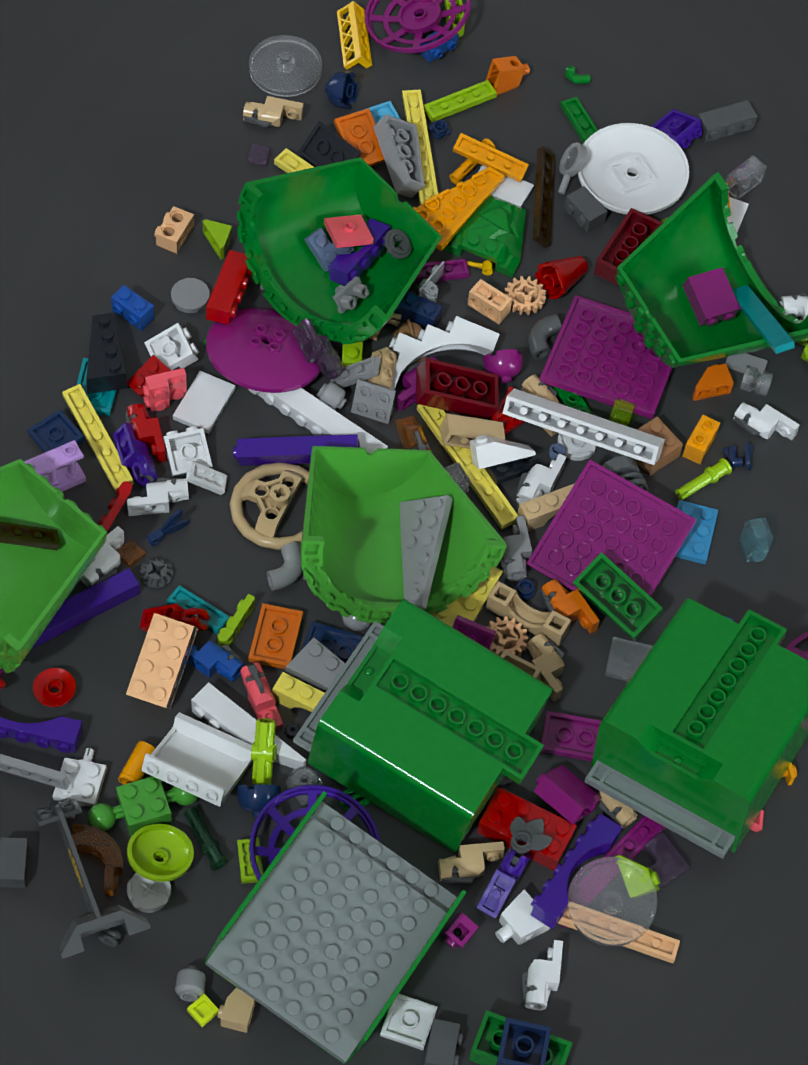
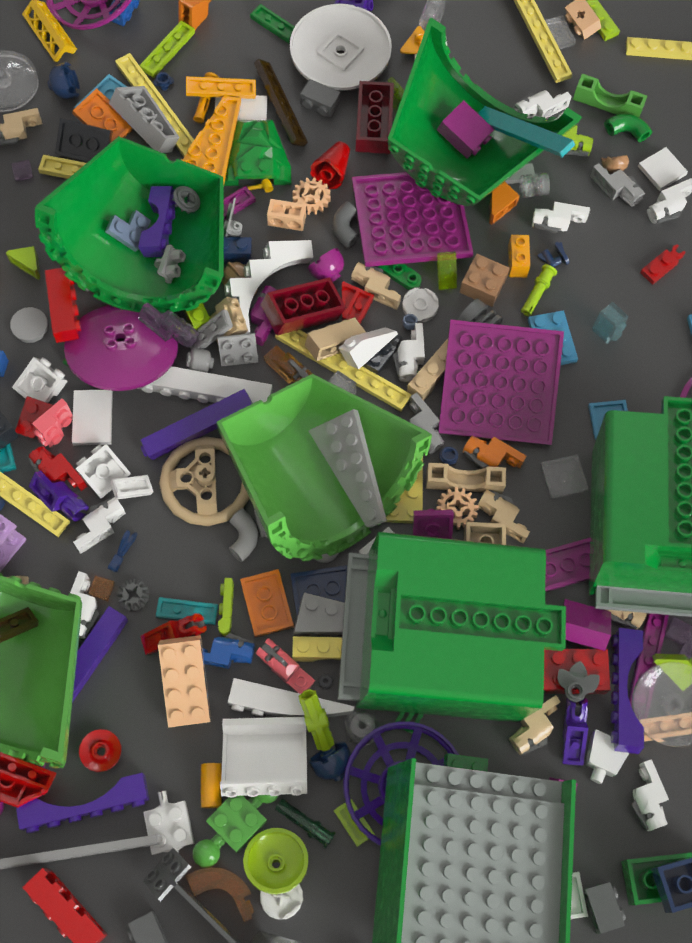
camera: 25 degrees left, 10 degrees up
(116, 504) = (66, 553): red hinge -> none
(348, 231) = (139, 207): coral plate -> none
(571, 164) = (289, 63): light grey piece -> none
(583, 426) = (426, 291): white brick -> none
(618, 597) = (533, 428): green brick -> none

